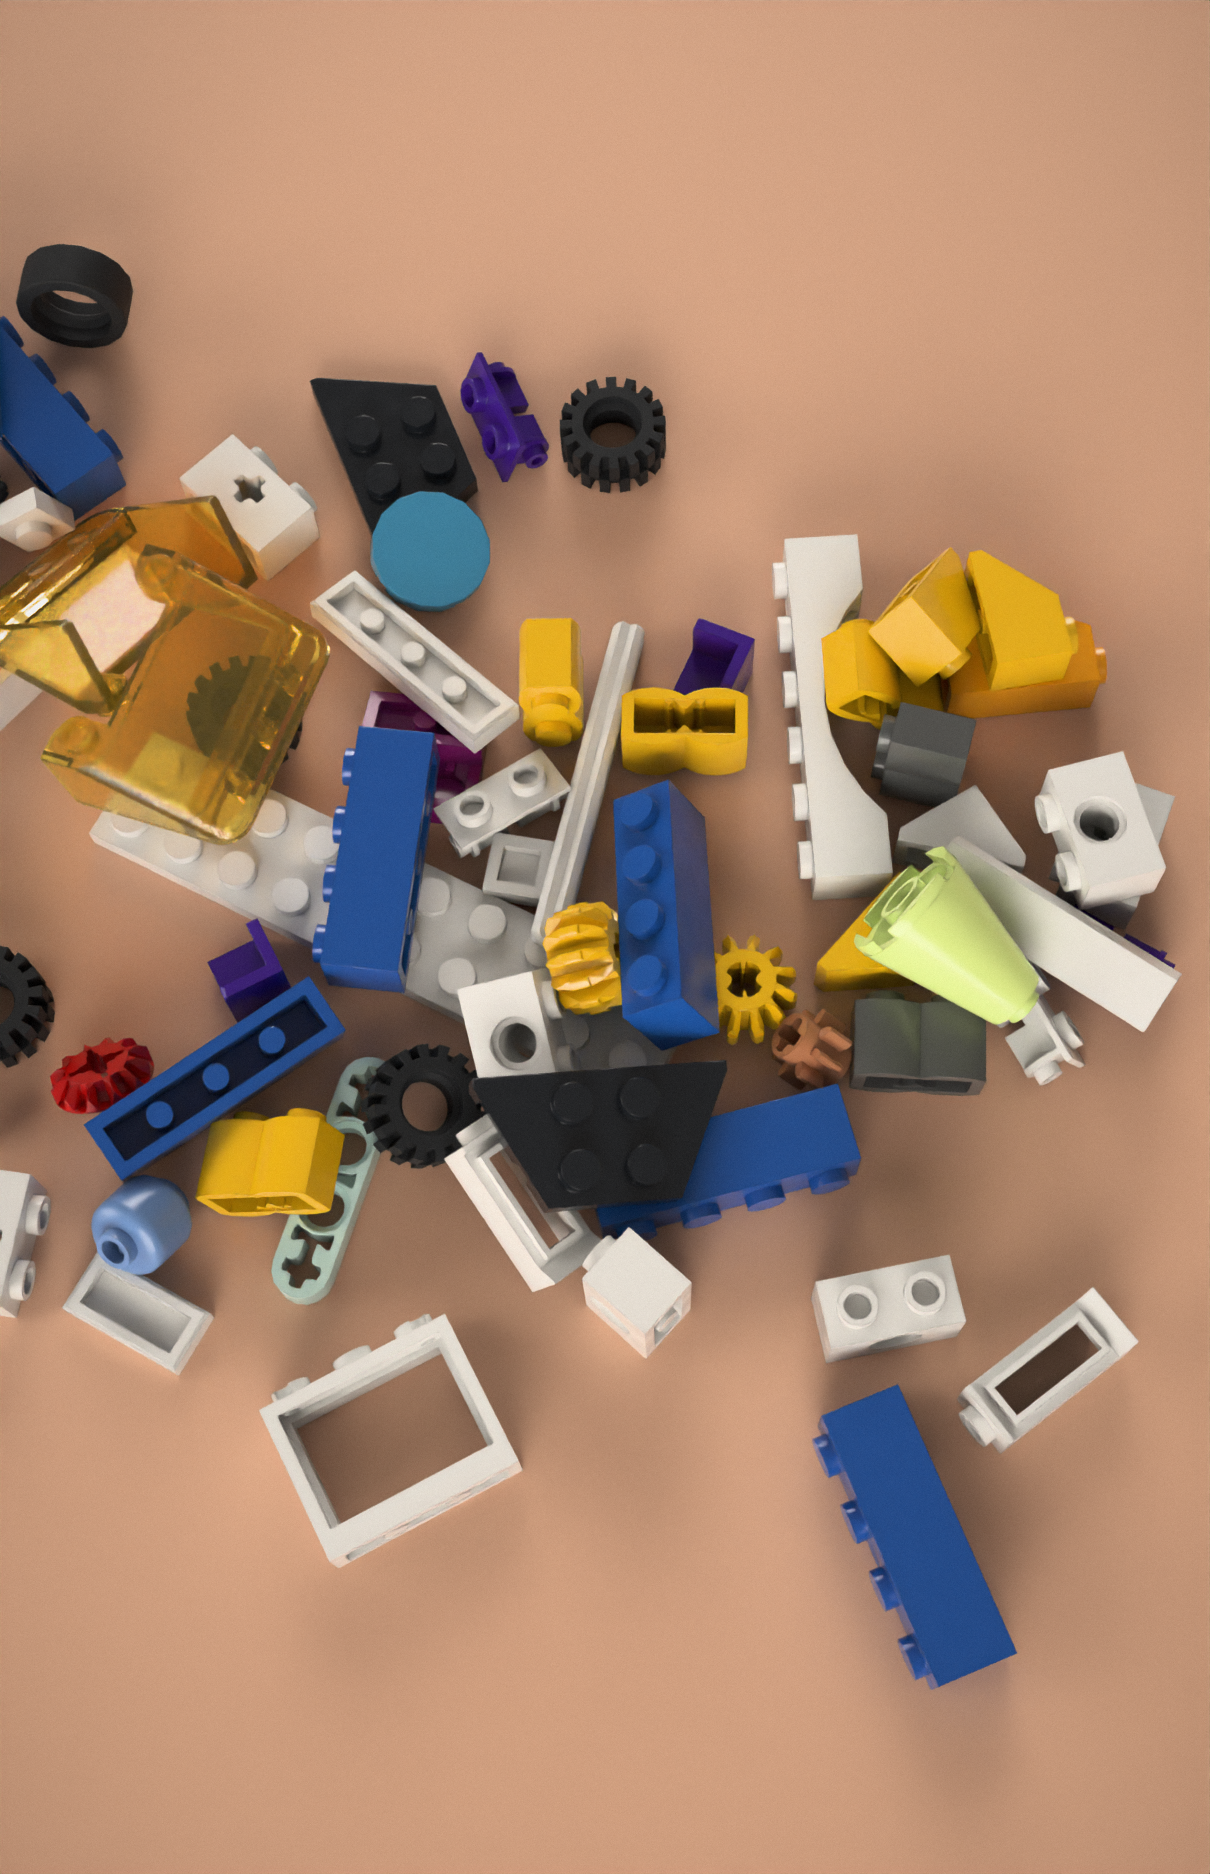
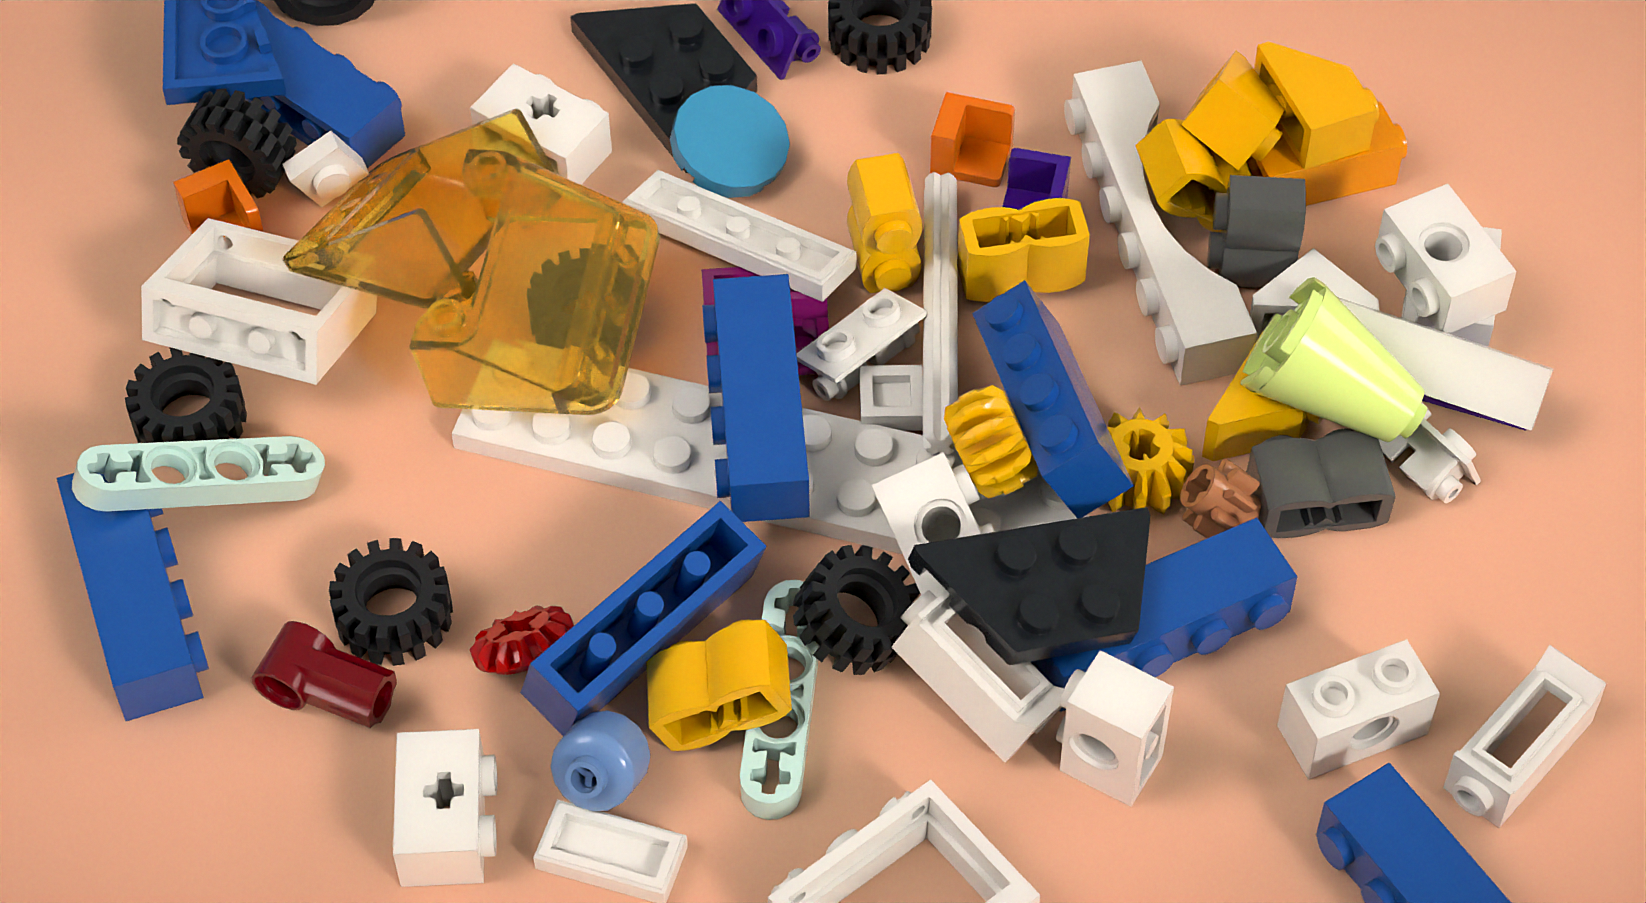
camera: 15 degrees left, 15 degrees down
(249, 974) = (650, 524): dark purple panel -> none
(669, 590) = (972, 139): none -> orange panel

